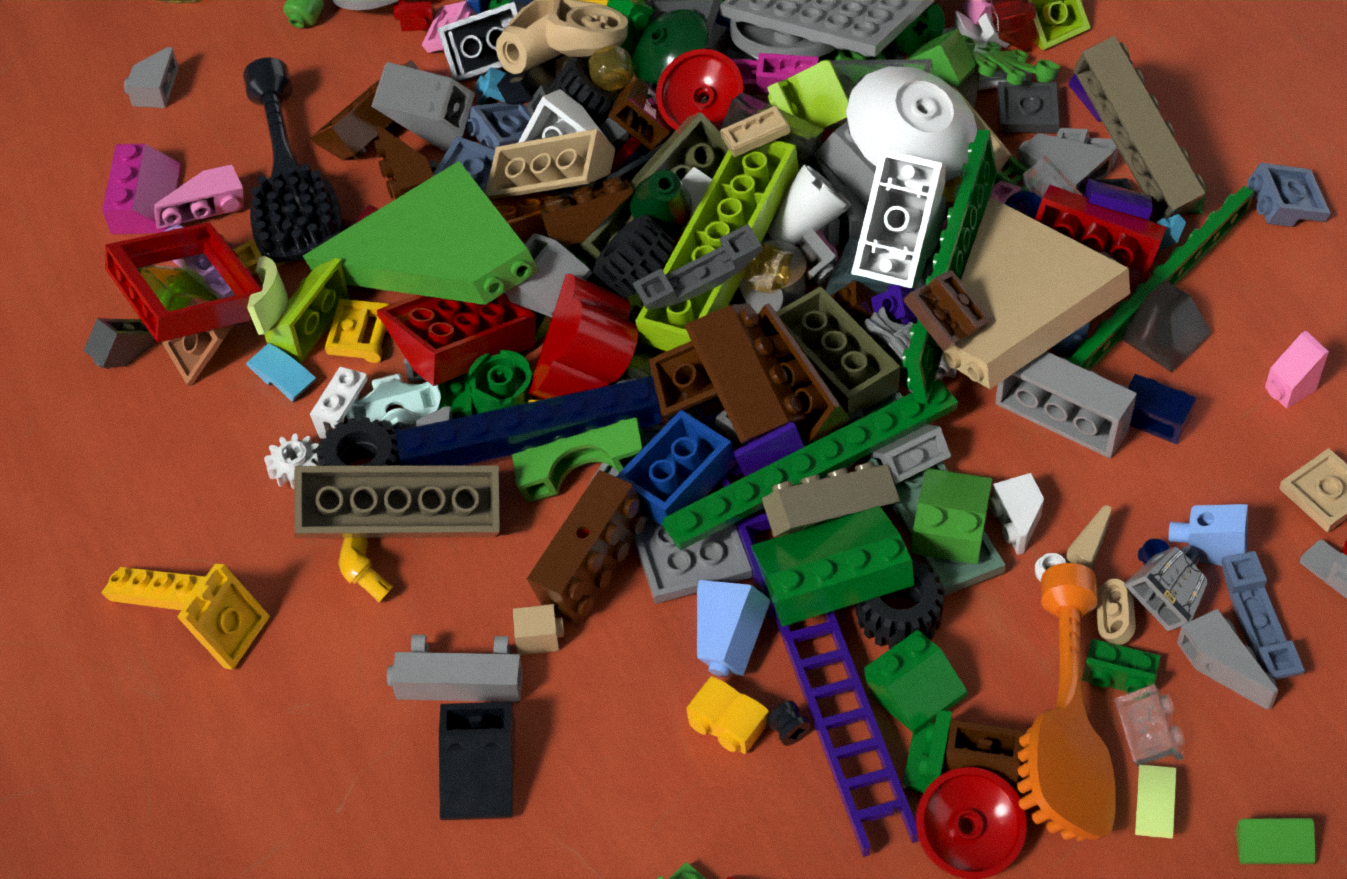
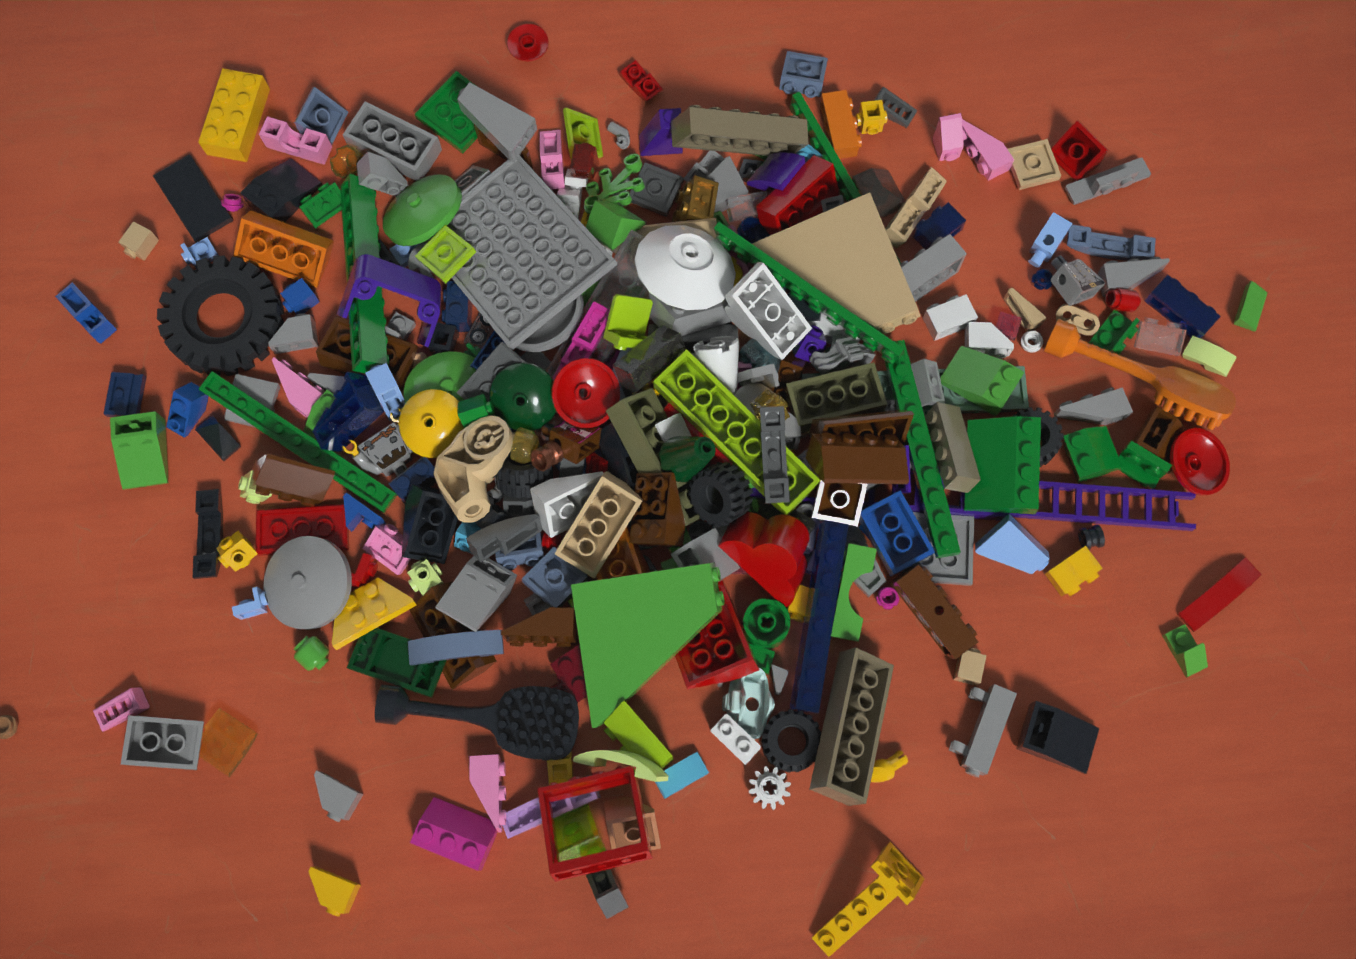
camera: 70 degrees left, 20 degrees up
(49, 112) = (333, 891): none -> yellow slope
(322, 75) = (387, 659): none -> dark green slope
(349, 328) = (660, 713): yellow plate -> none
(352, 104) = (455, 646): none -> sand blue slope
(368, 31) = (368, 609): none -> yellow wing
(428, 58) = (424, 576): none -> yellowish green brick
(497, 98) = (503, 536): none -> dark grey slope
(606, 88) = (546, 456): none -> copper wheel
(755, 131) = (667, 370): tan plate -> none
(947, 310) = (870, 313): reddish brown slope -> none
(994, 682) = (1100, 409): none -> light grey slope
(1024, 451) = (949, 316): none -> white brick
(1030, 135) = (696, 200): none -> pearl gold bracket
(1056, 531) = (1008, 325): none -> clear pink plate
(1072, 58) = (621, 133): none -> light grey arm
(1168, 47) = (640, 82): none -> red slope
(1178, 657) = (1122, 300): none -> red brick
(1184, 374) = (914, 207): none -> tan slope
(1215, 743) = (1182, 307): none -> clear blue brick
(1239, 255) = (840, 123): none -> orange brick
(1271, 280) = (871, 117): none -> yellow brick
(1308, 427) = (988, 152): none -> bright pink slope
(1310, 286) = (890, 98): none -> dark grey slope

